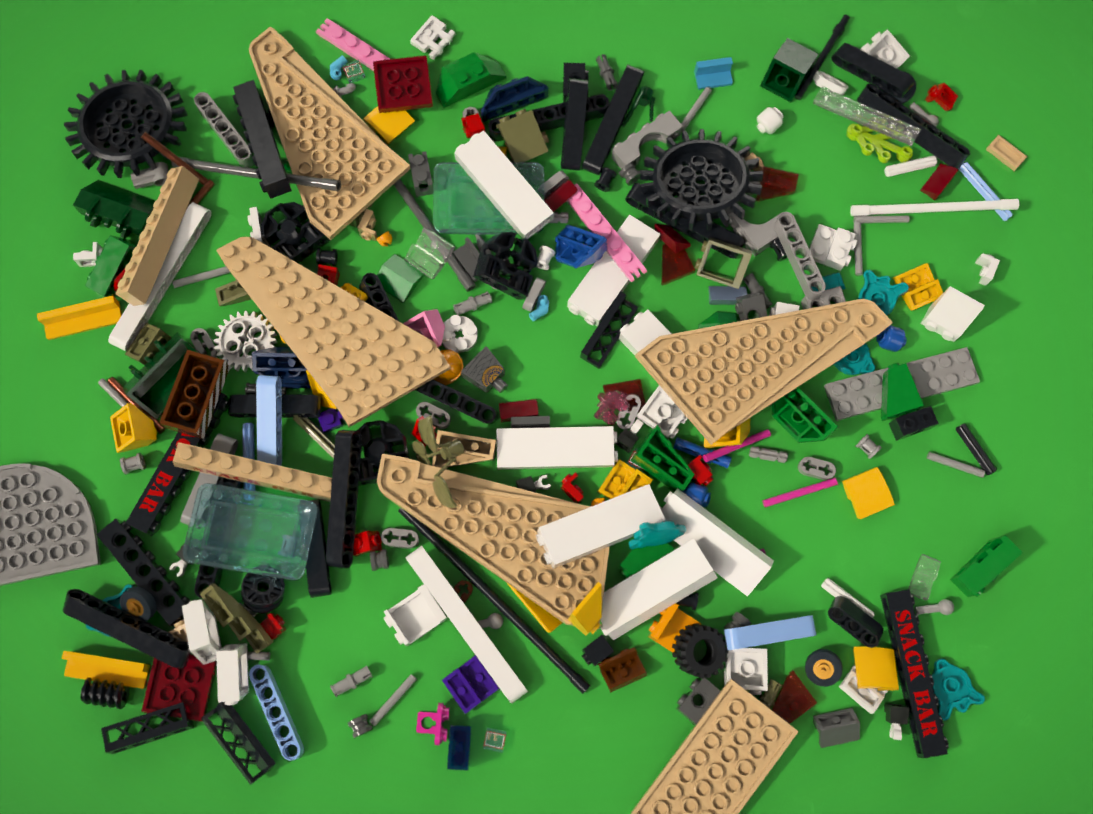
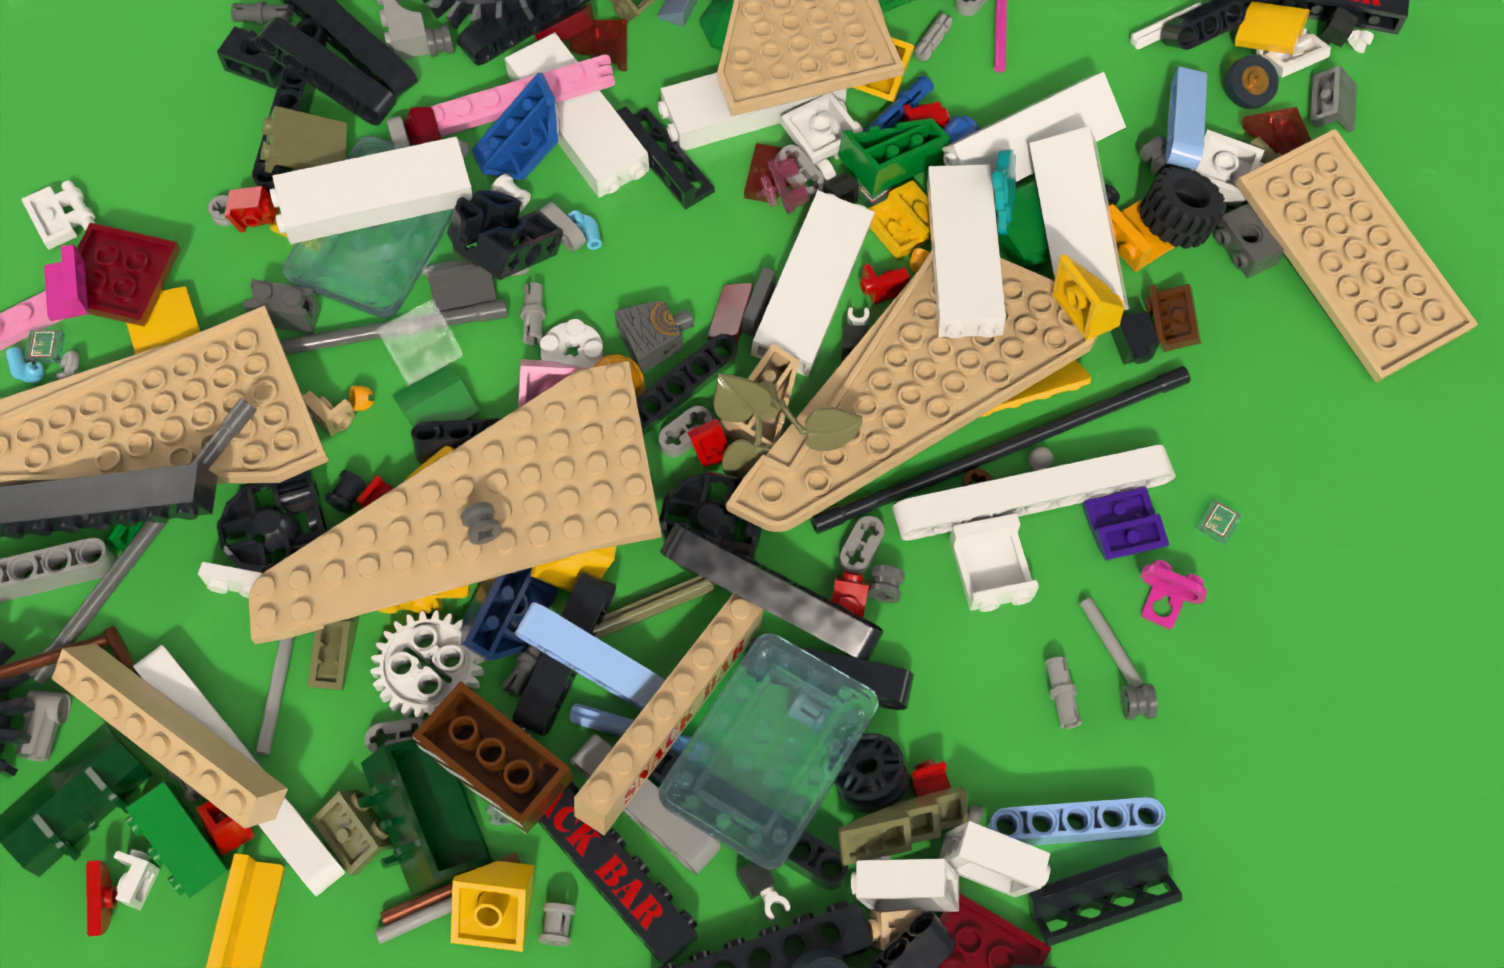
camera: 65 degrees left, 10 degrees down
(75, 245) = (99, 898): none -> red plate
(313, 331) = (481, 523): none -> dark grey wheel
(330, 420) = (625, 576): dark purple plate -> none
(381, 64) = (66, 286): none -> dark pink panel
(459, 747) = (1220, 565): clear blue brick -> none
(467, 77) = (156, 192): green wedge -> none
(512, 96) = (227, 137): dark blue wedge -> none
(605, 179) = (434, 78): black bush -> none
(728, 449) = (909, 76): dark pink bar -> none

